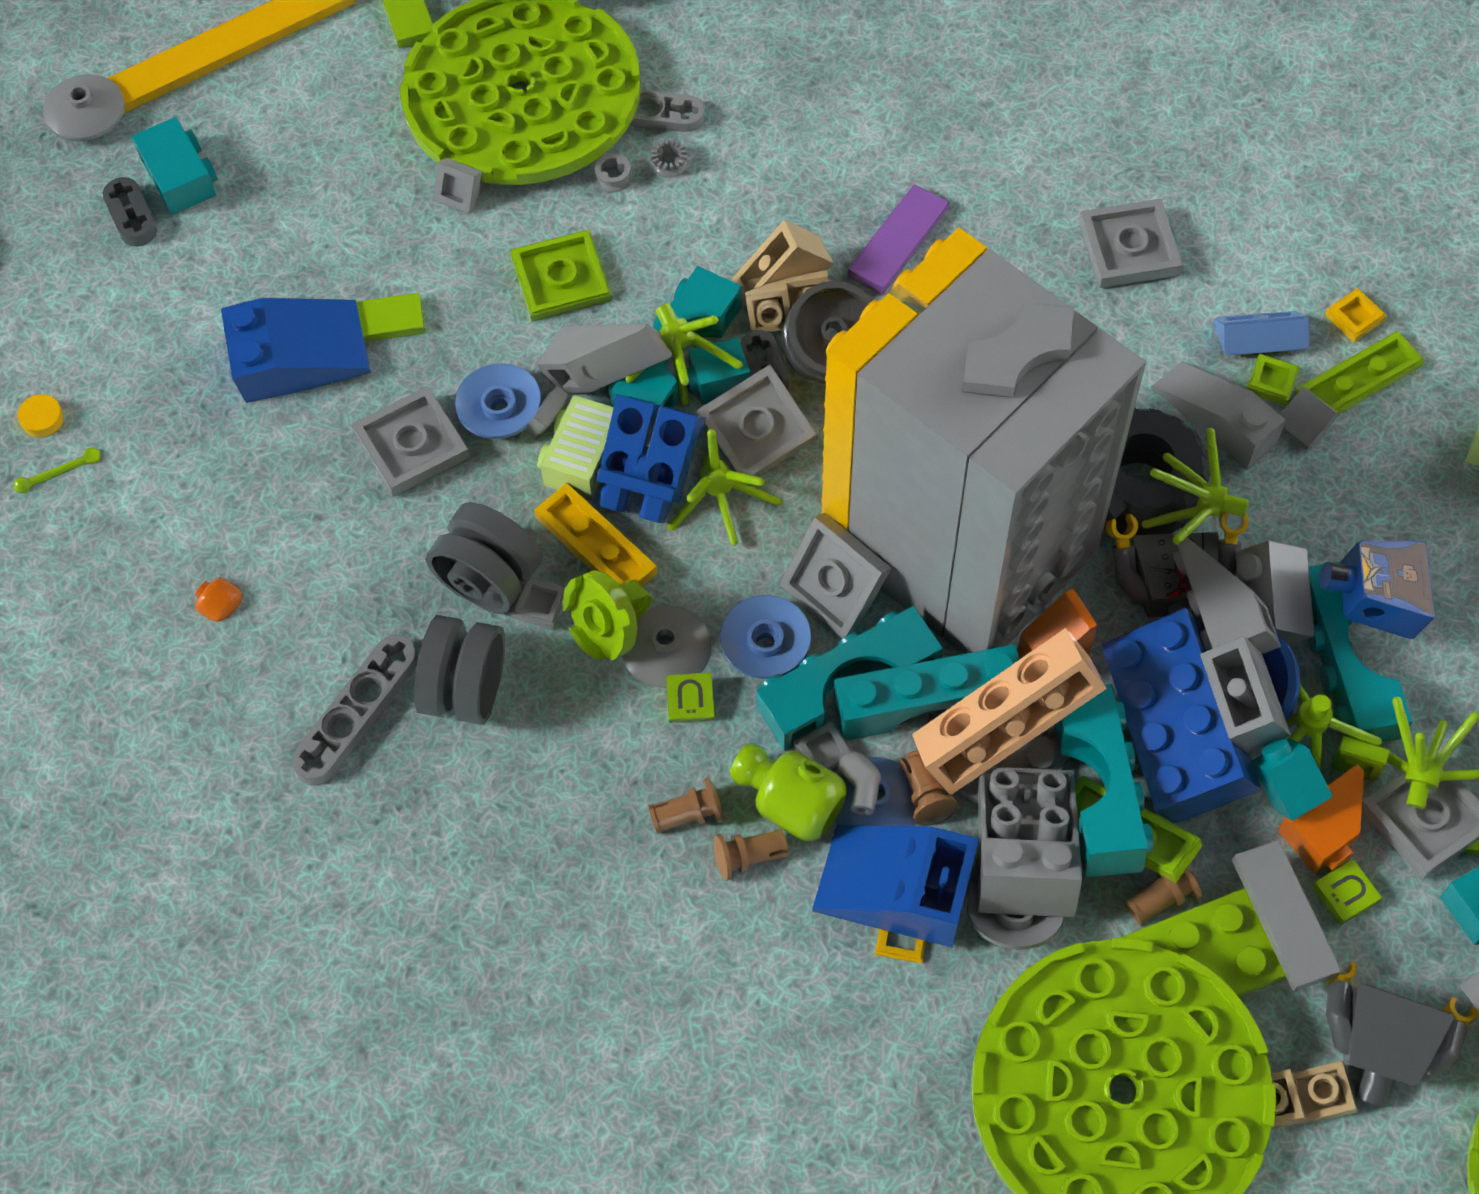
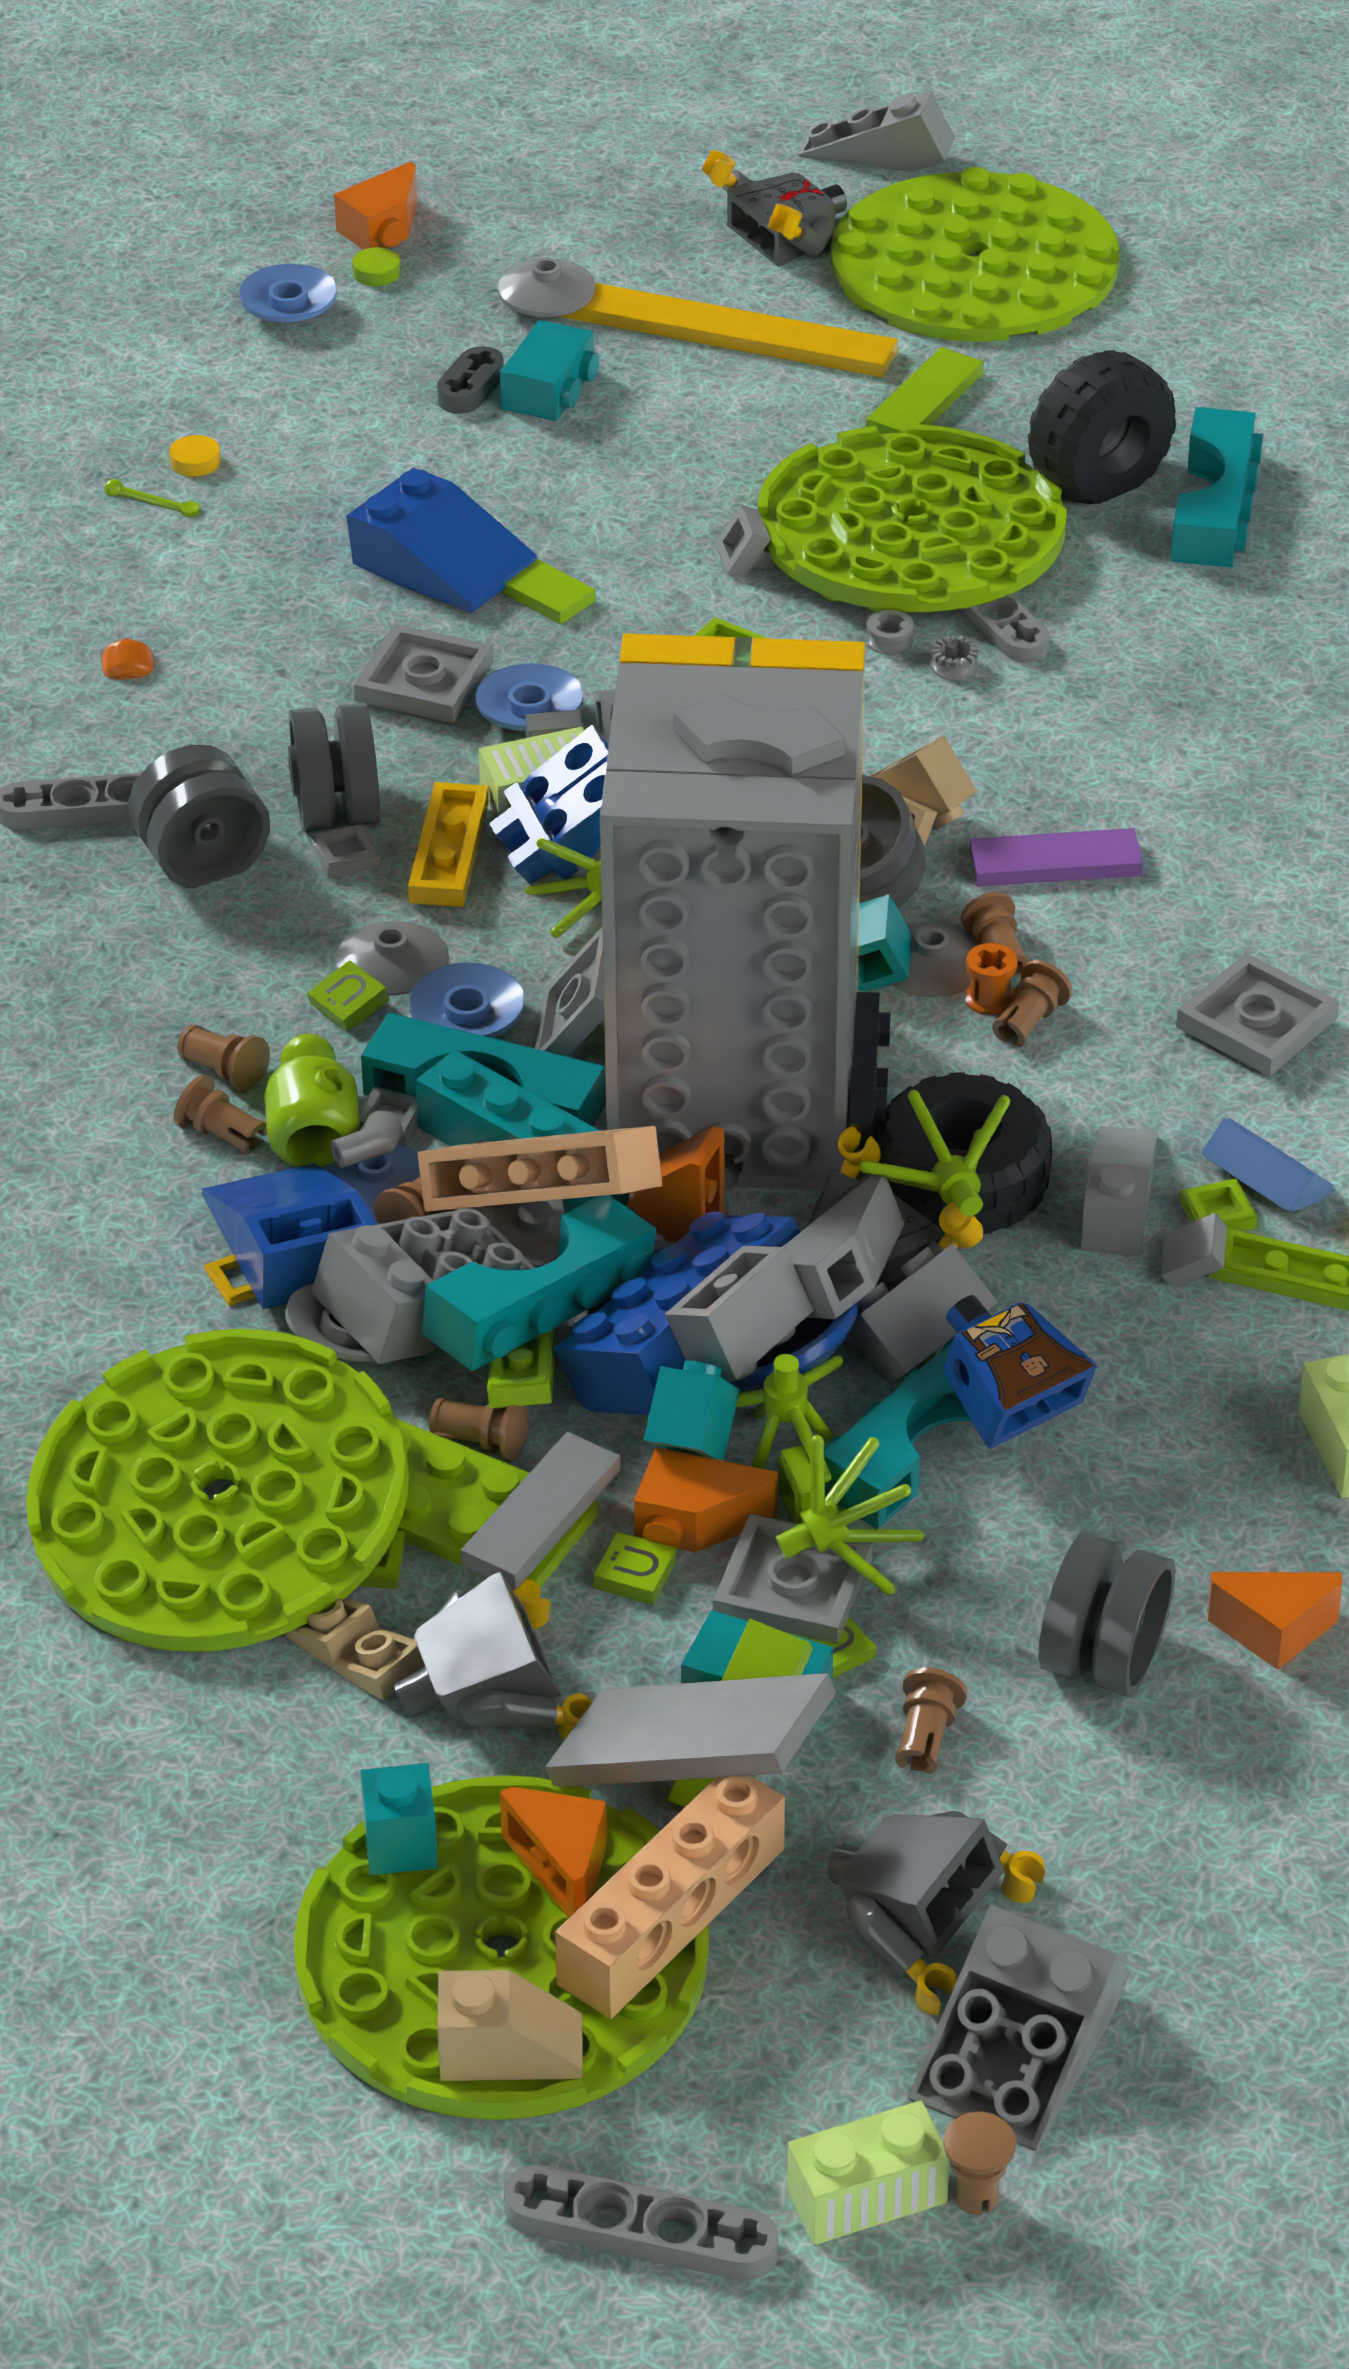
camera: 50 degrees right, 20 degrees down
(605, 613) = (369, 876): lime tile -> none

